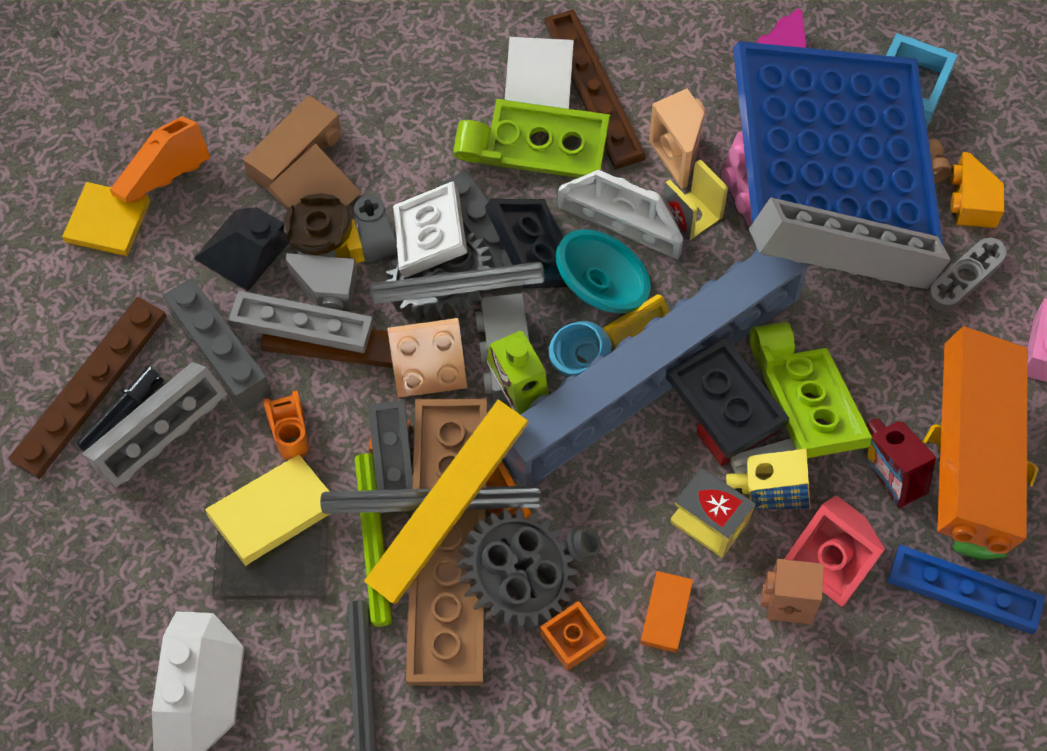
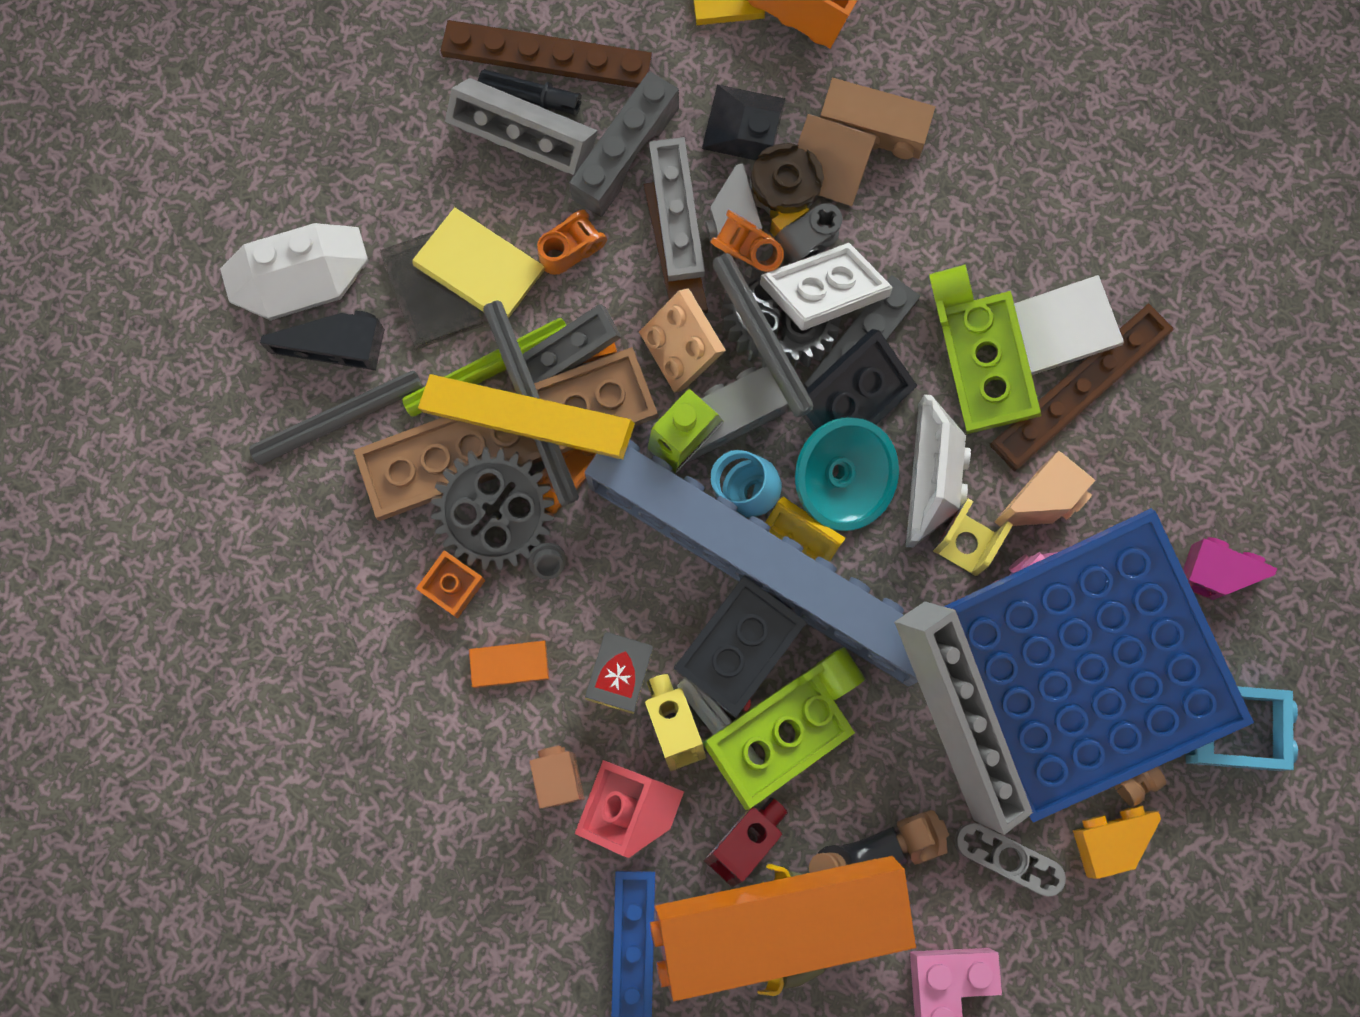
camera: 70 degrees right, 15 degrees up
(288, 659) = (333, 339): none -> black slope
(363, 270) = (743, 238): none -> orange piece
(930, 330) = (919, 836): none -> medium nougat piece

